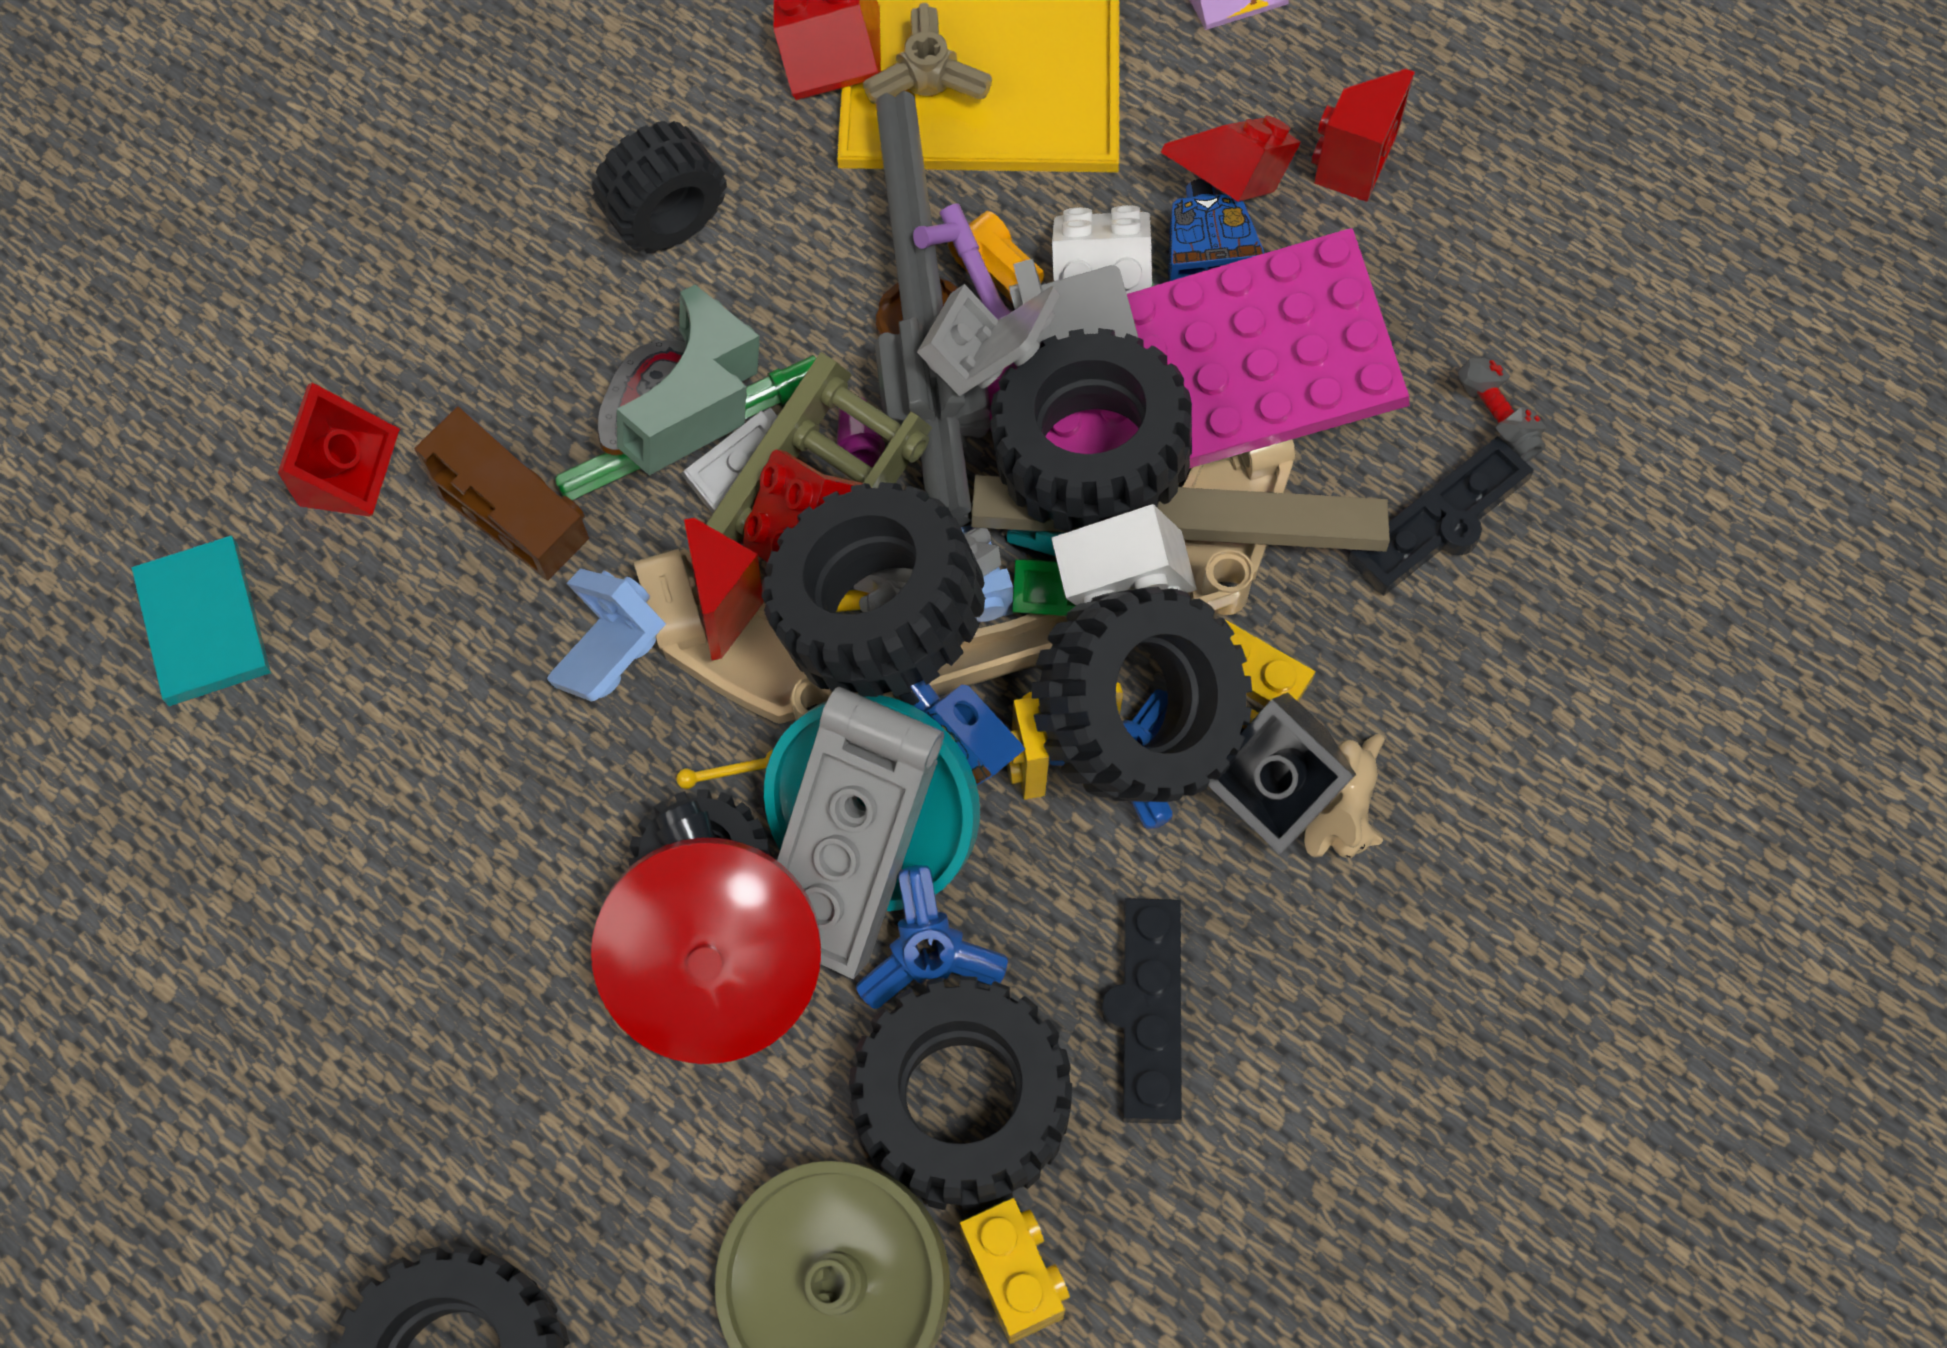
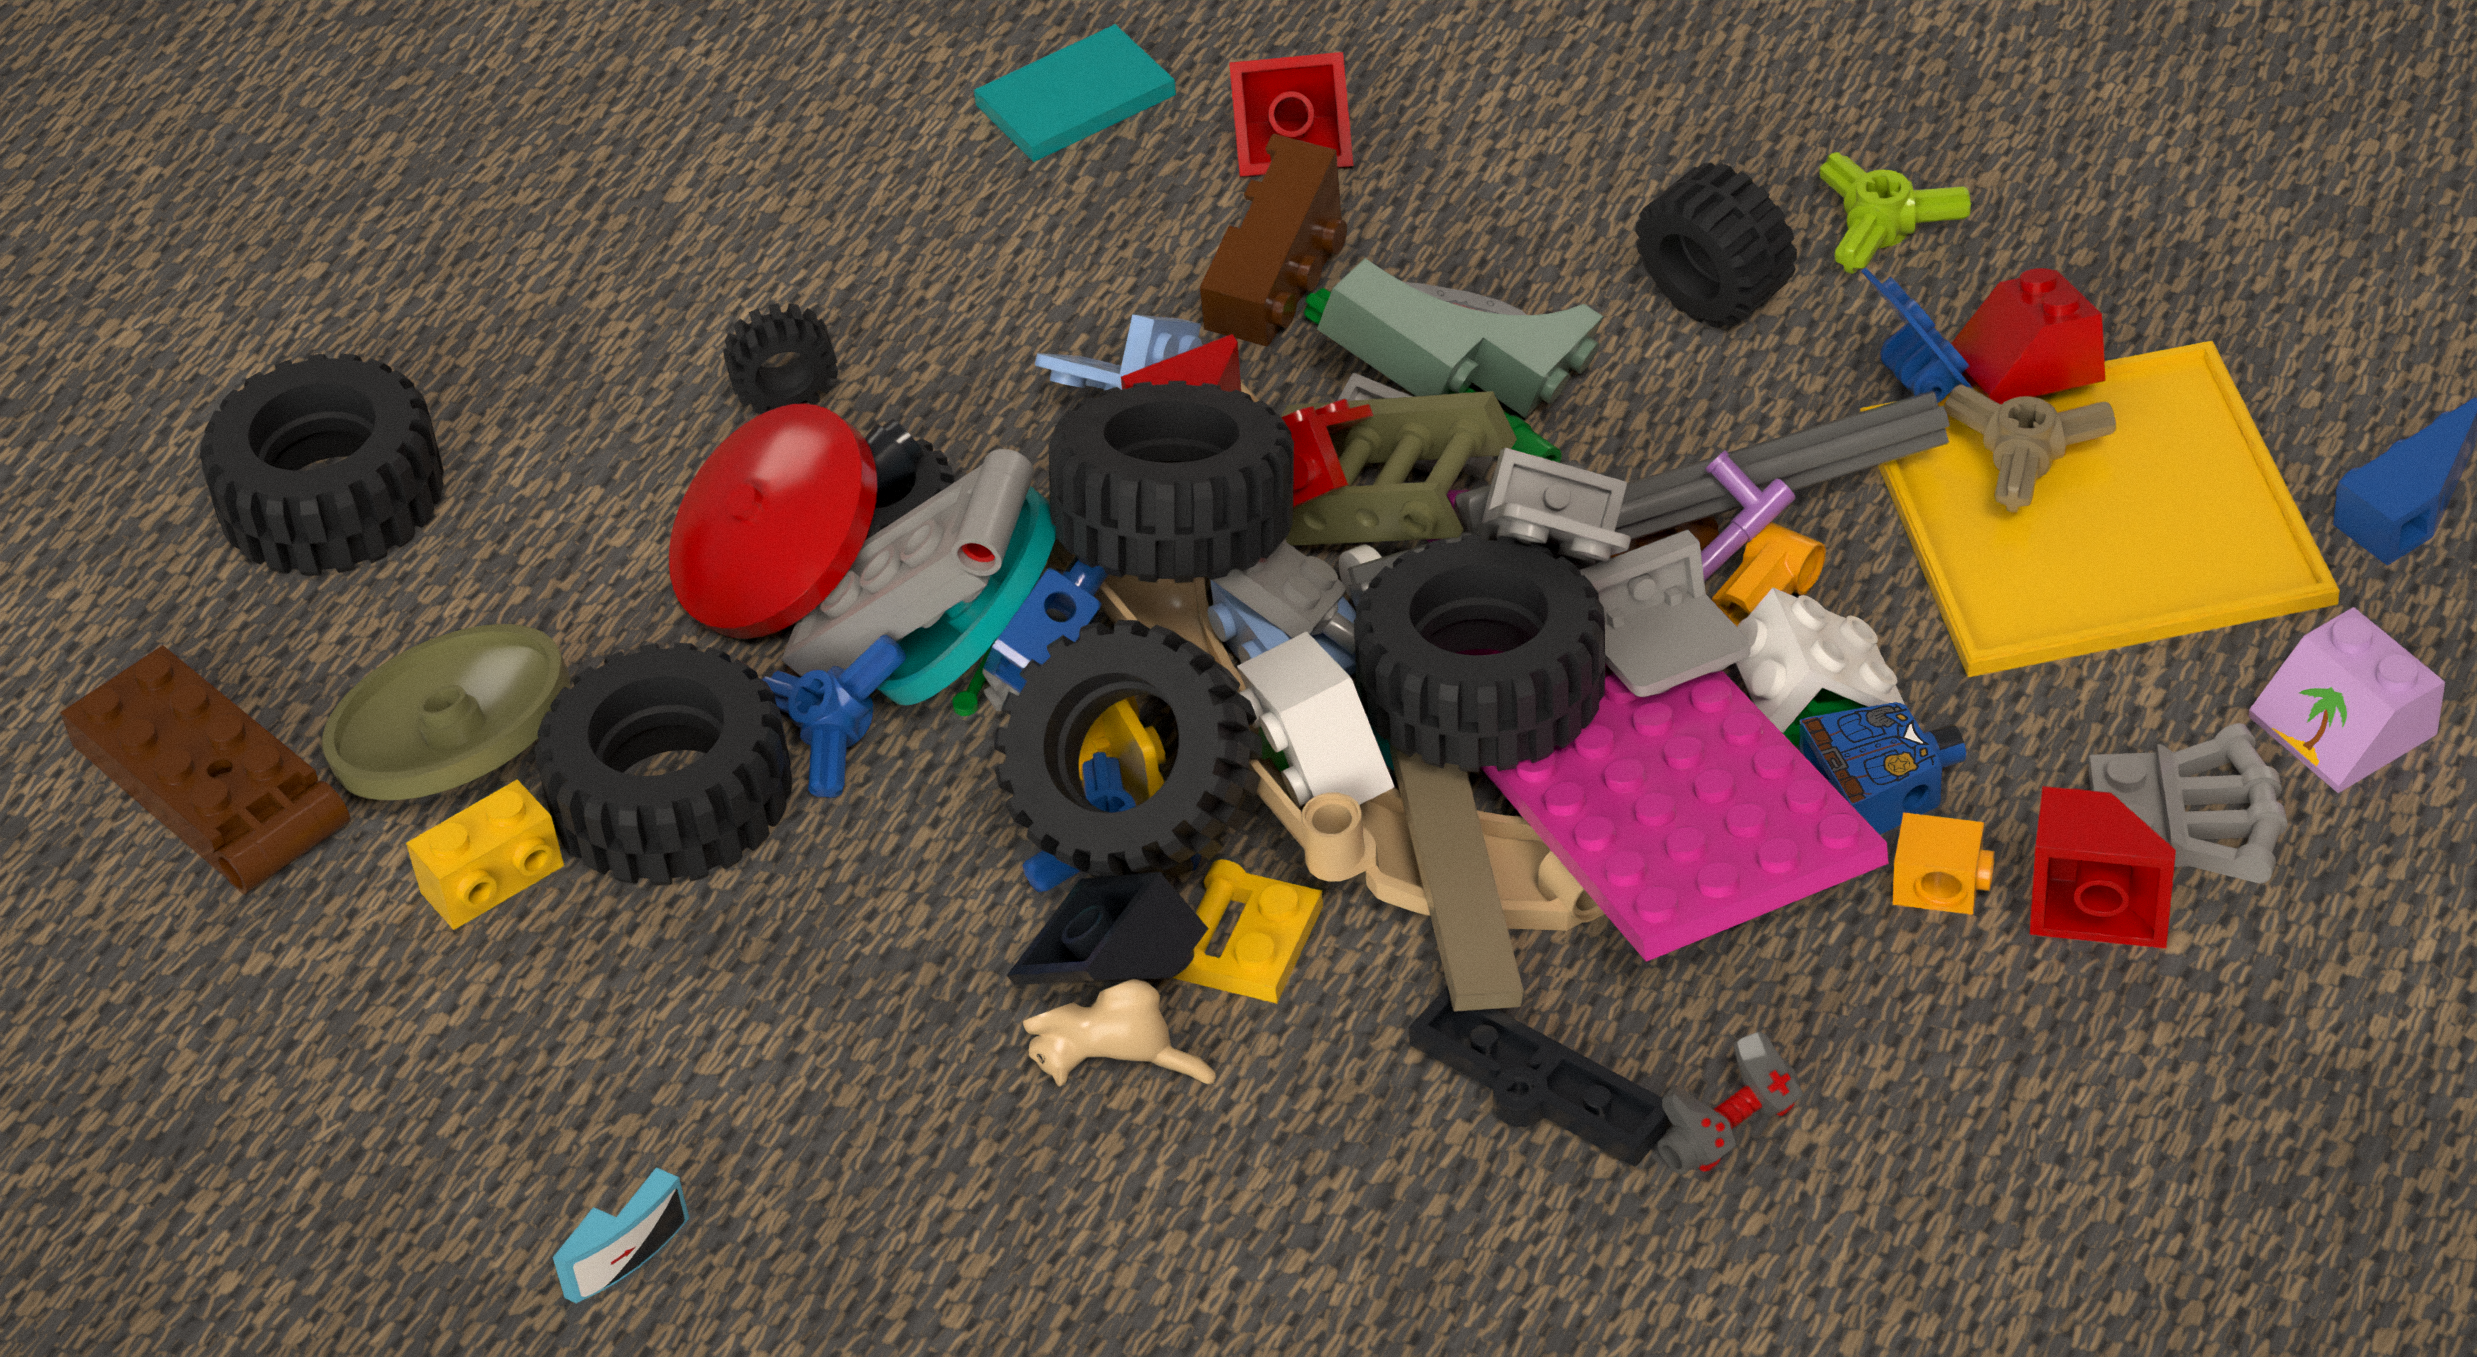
camera: 80 degrees right, 20 degrees down
(479, 917) = (774, 335): none -> black tyre
(632, 86) = (1884, 208): none -> lime bush
(797, 98) = (1918, 351): none -> blue hinge
(1150, 1011) = (809, 926): black hinge -> none
(1238, 157) = (1993, 751): red slope -> none
(1291, 102) = (2160, 786): none -> light grey plate
(1311, 216) = (1941, 863): none -> light orange brick
(1483, 1224) = (612, 1247): none -> slope

